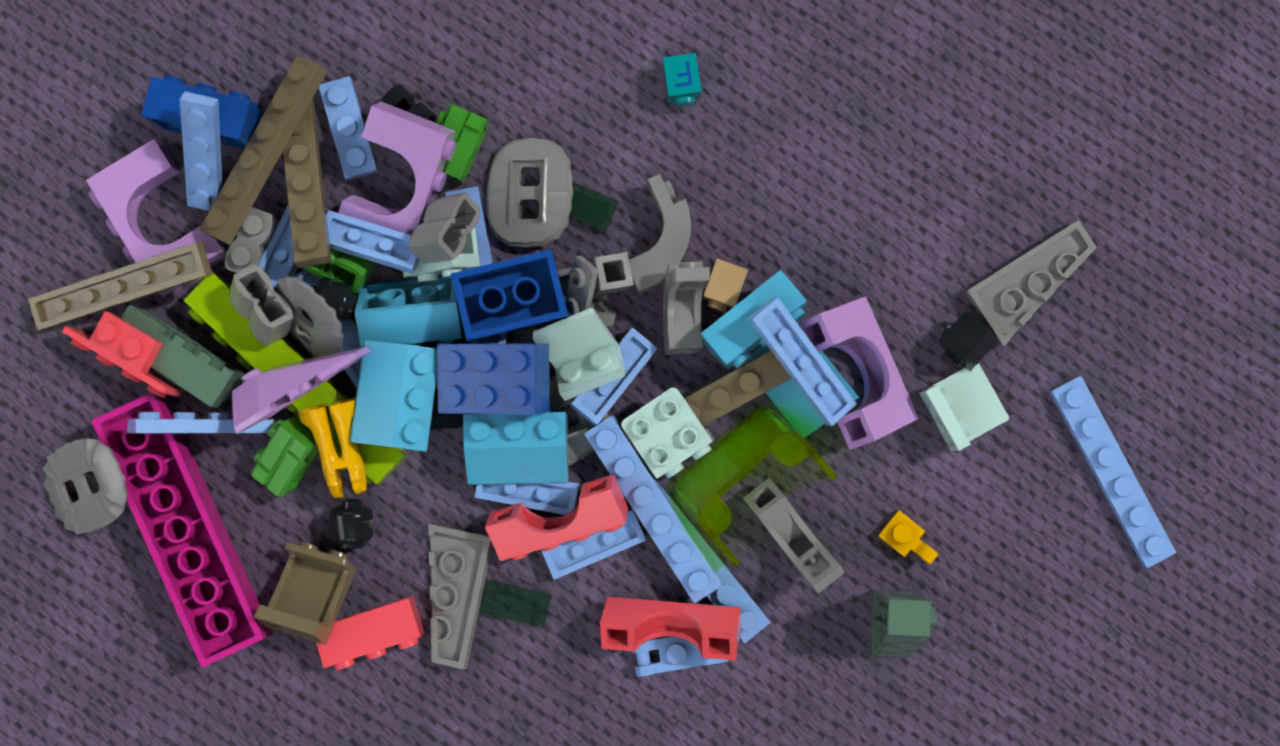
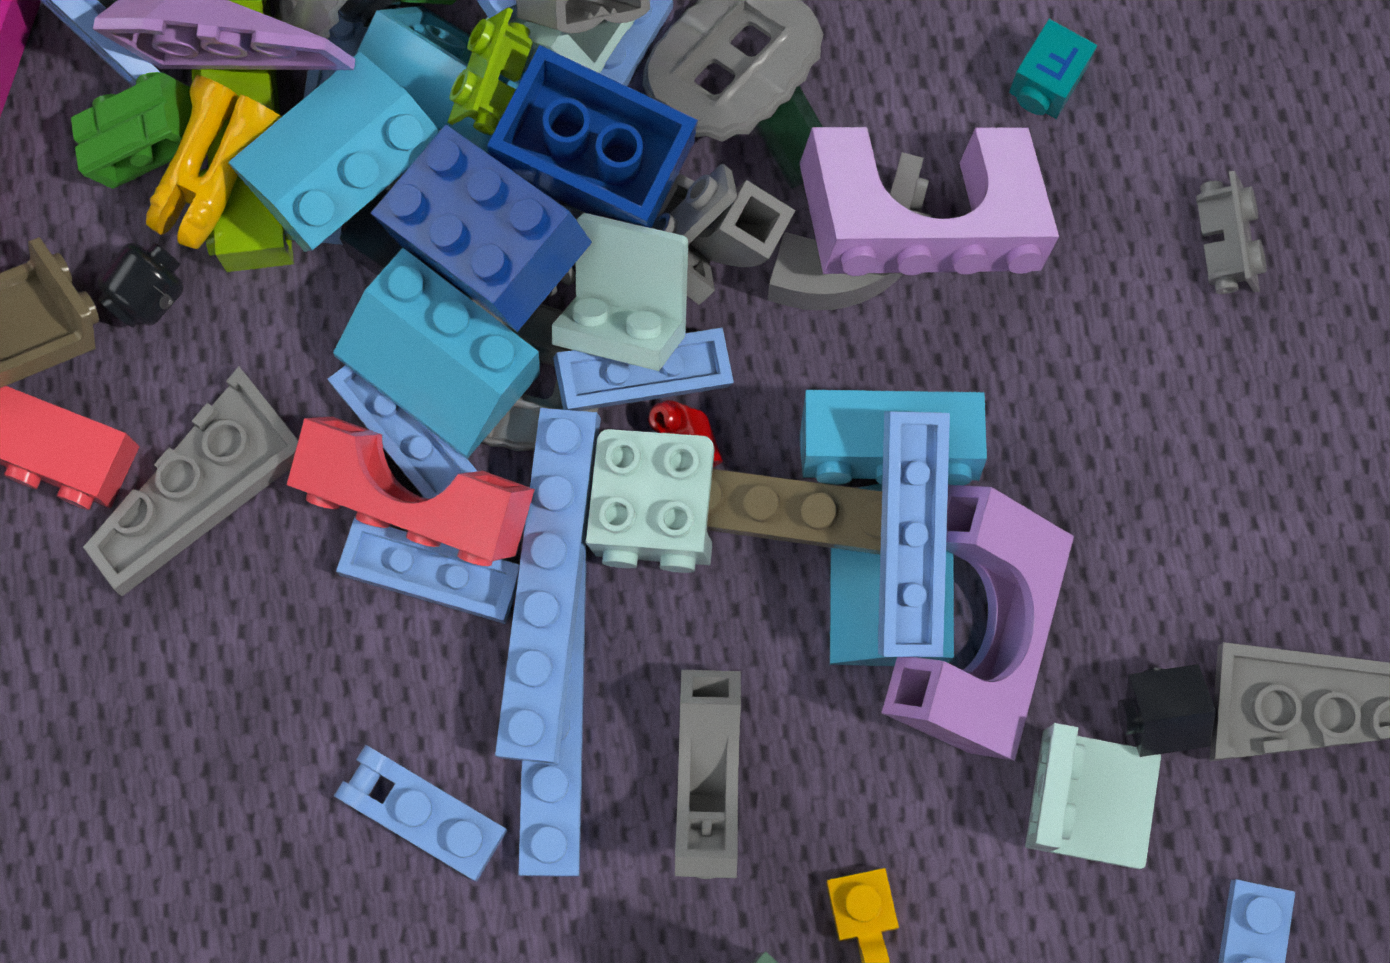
camera: 35 degrees right, 10 degrees down
(428, 287) = (495, 51): none -> lime hinge
(515, 603) = (261, 565): clear green tile -> none
(631, 622) = (392, 714): coral arch -> none
(651, 384) = (682, 419): none -> red arm
(666, 234) = (868, 231): none -> lavender arch
(682, 306) = (813, 348): light grey arch -> none
(724, 285) = (894, 364): tan brick -> none
(734, 457) = (642, 606): clear neon green windscreen -> none
(817, 83) = (1229, 212): none -> light grey hinge

